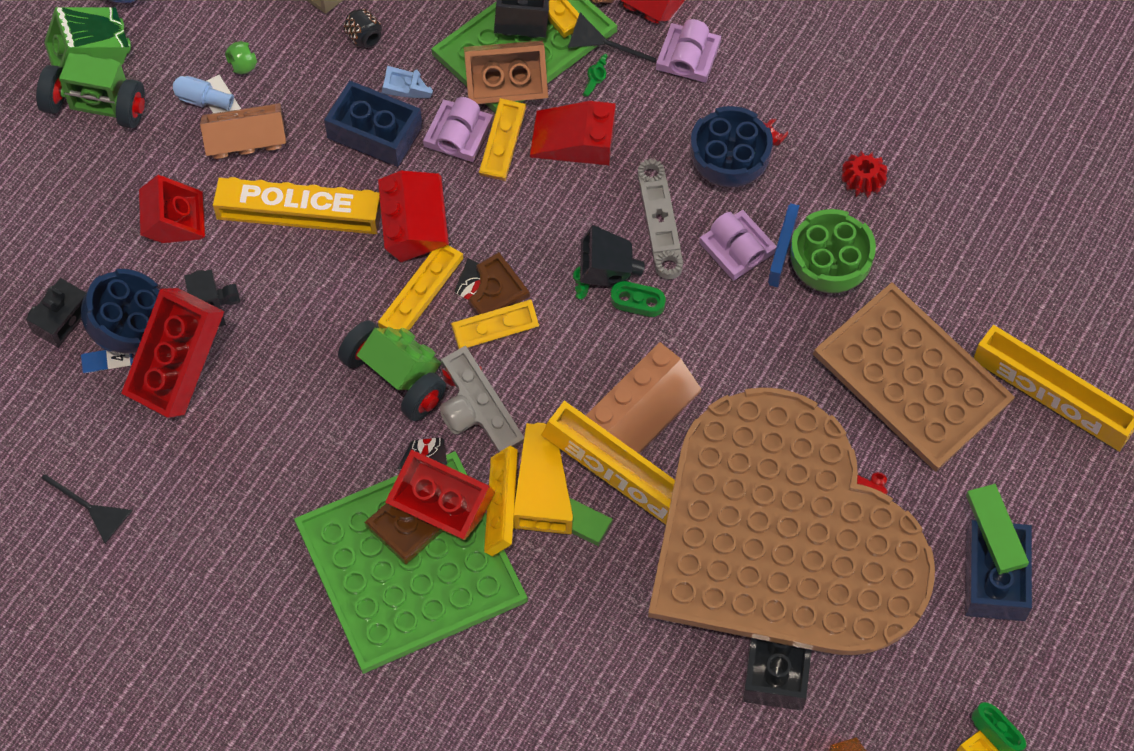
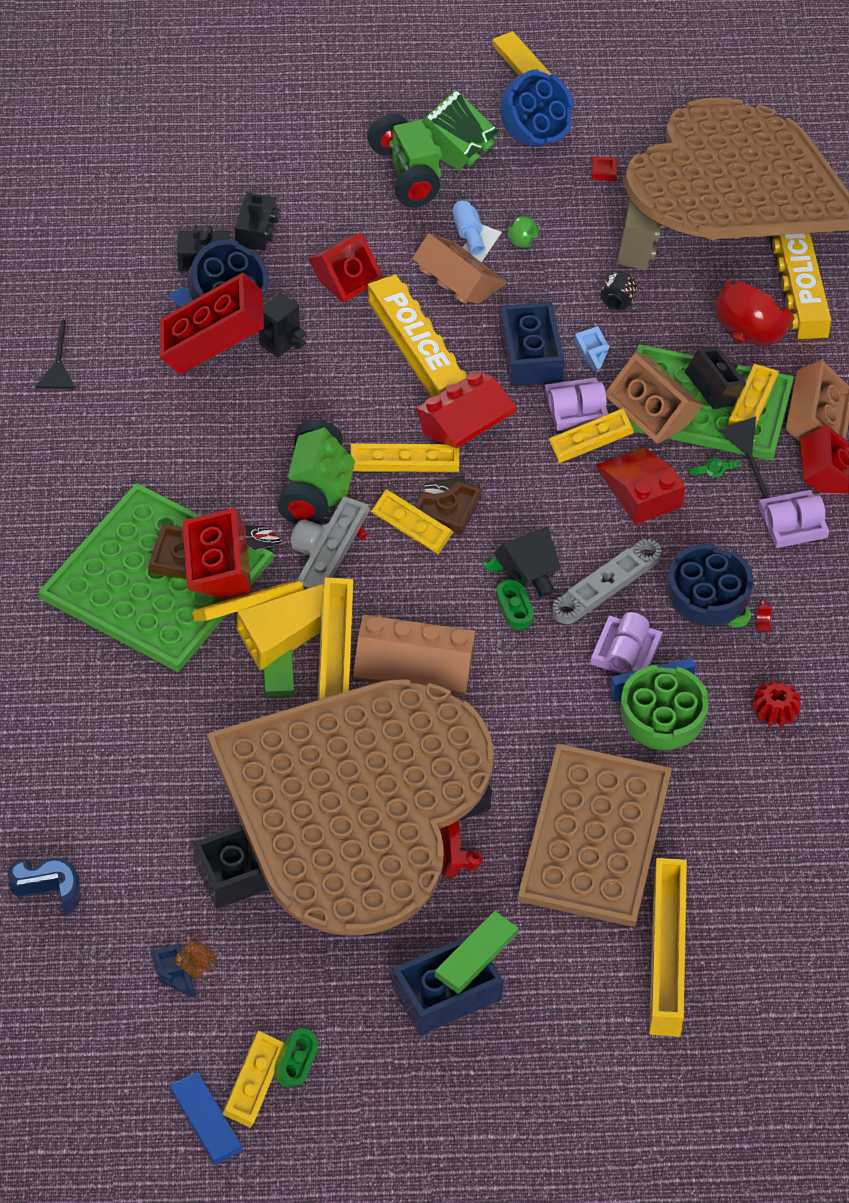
camera: 55 degrees right, 10 degrees down
(59, 251) = (256, 221): none -> black brick

